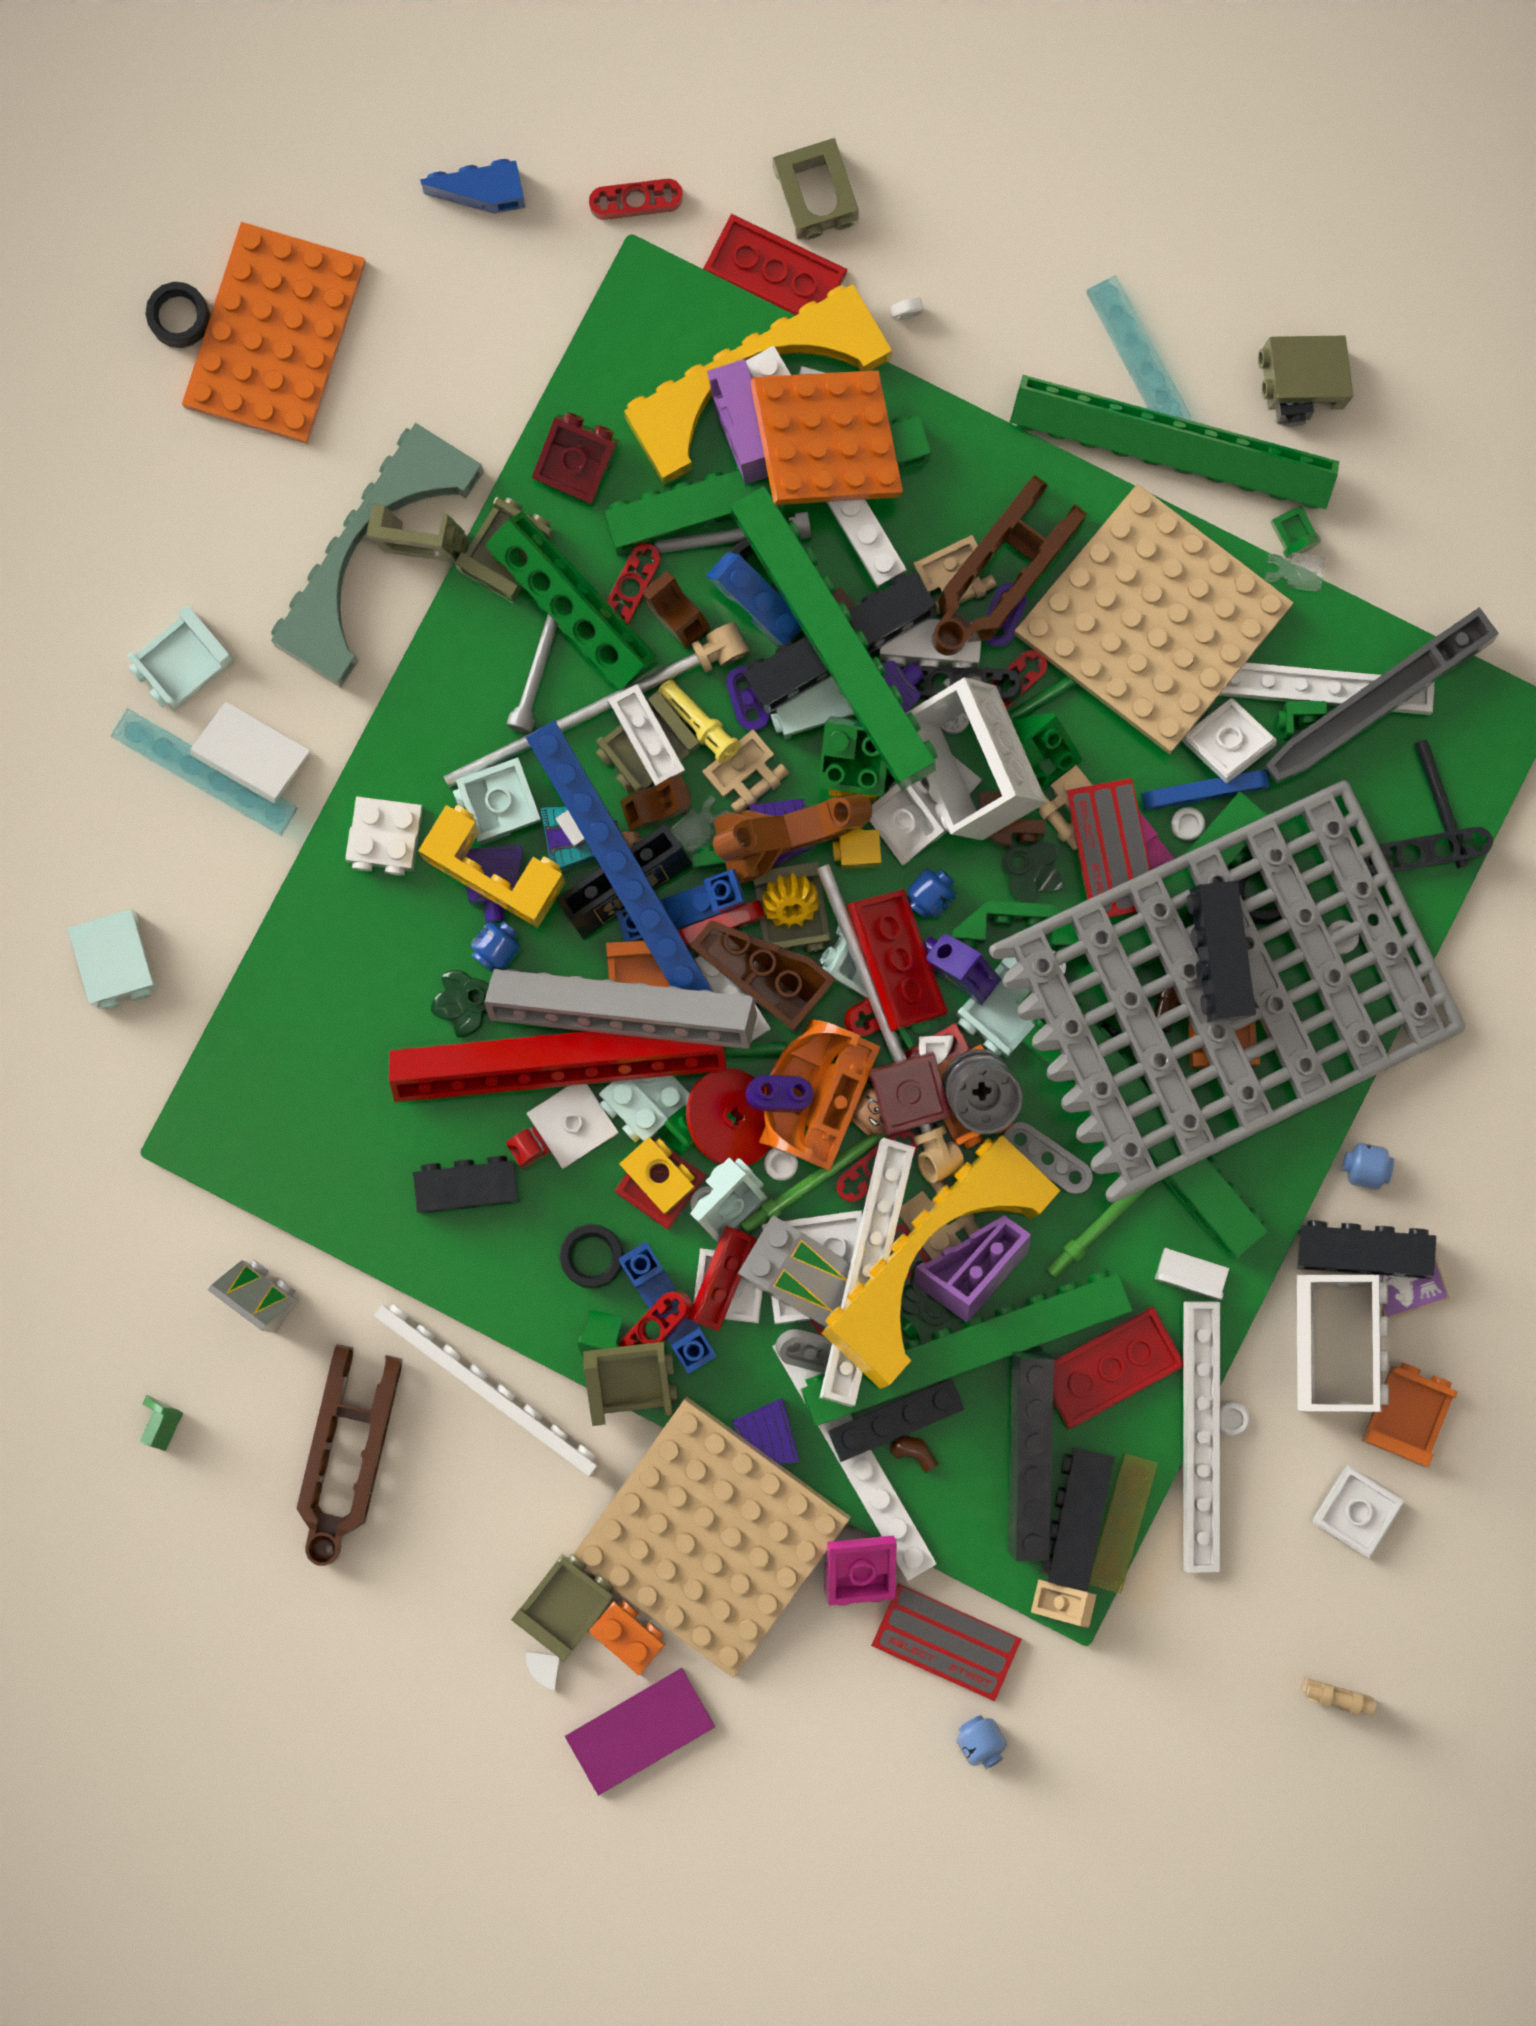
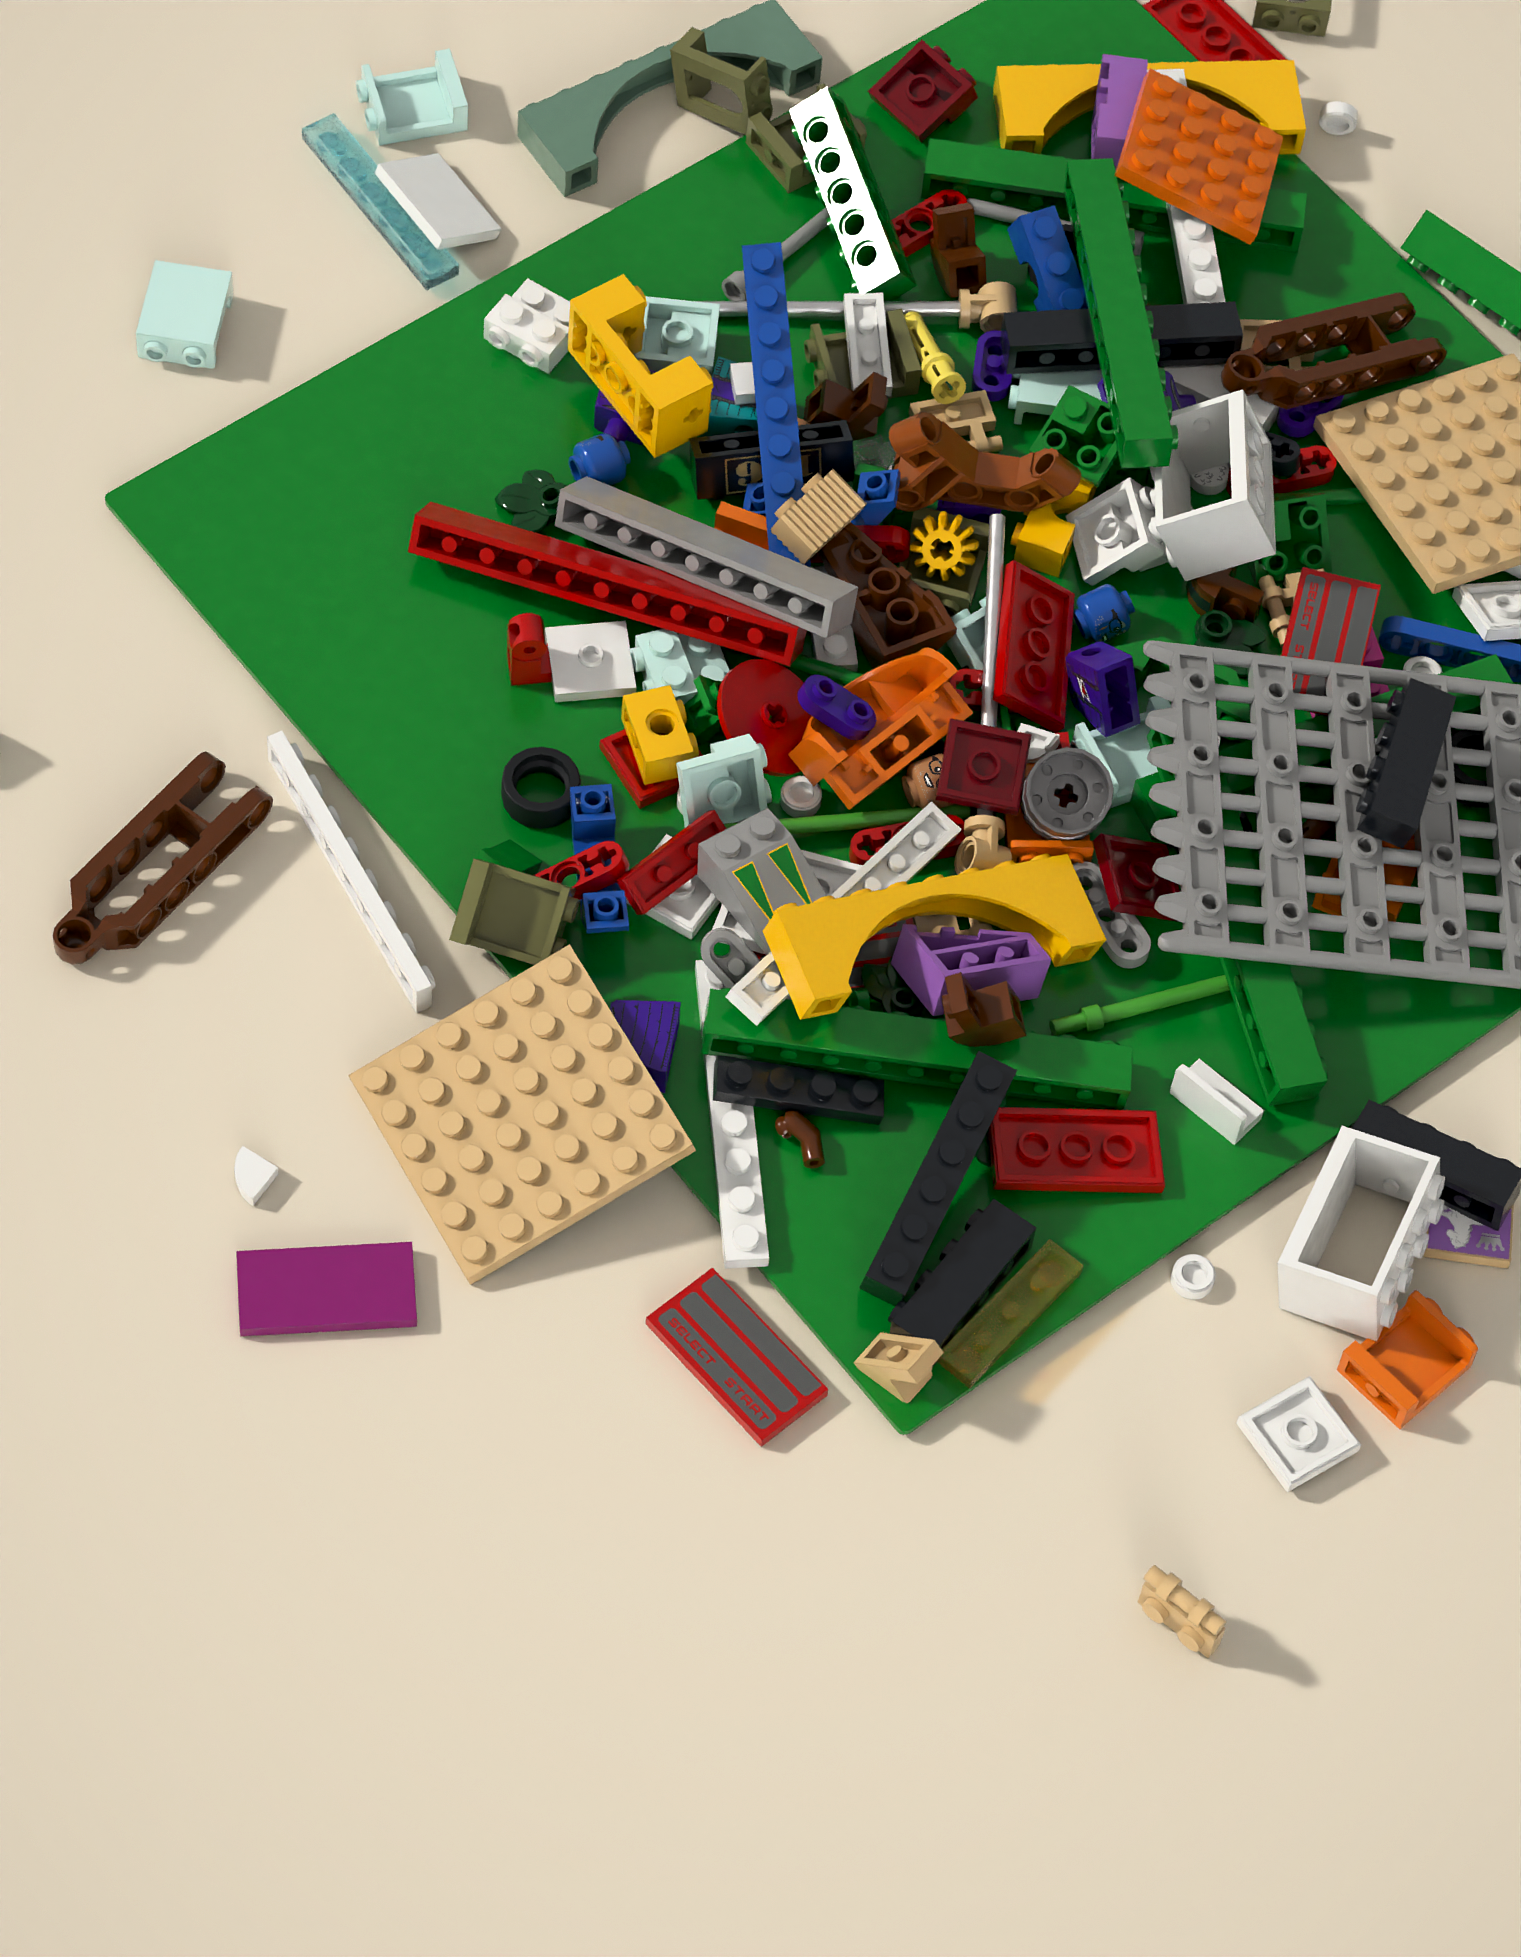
camera: 15 degrees right, 25 degrees down
(255, 1295) = (146, 663): light grey slope -> none
(466, 1185) = (440, 664): black brick -> none
(564, 1606) = (314, 1121): olive panel -> none
(627, 1636) = (369, 1184): orange bracket -> none
(690, 939) = (817, 516): none -> tan brick
(860, 1570) = (677, 1219): dark pink plate -> none
(981, 1742) = (724, 1472): medium blue head -> none
(1006, 1315) = (981, 1015): none -> reddish brown brick
(1050, 1123) = (1129, 876): none -> dark red tile
(1201, 1437) = (1147, 1267): white plate -> none
(1368, 1166) = (1475, 1084): medium blue head -> none

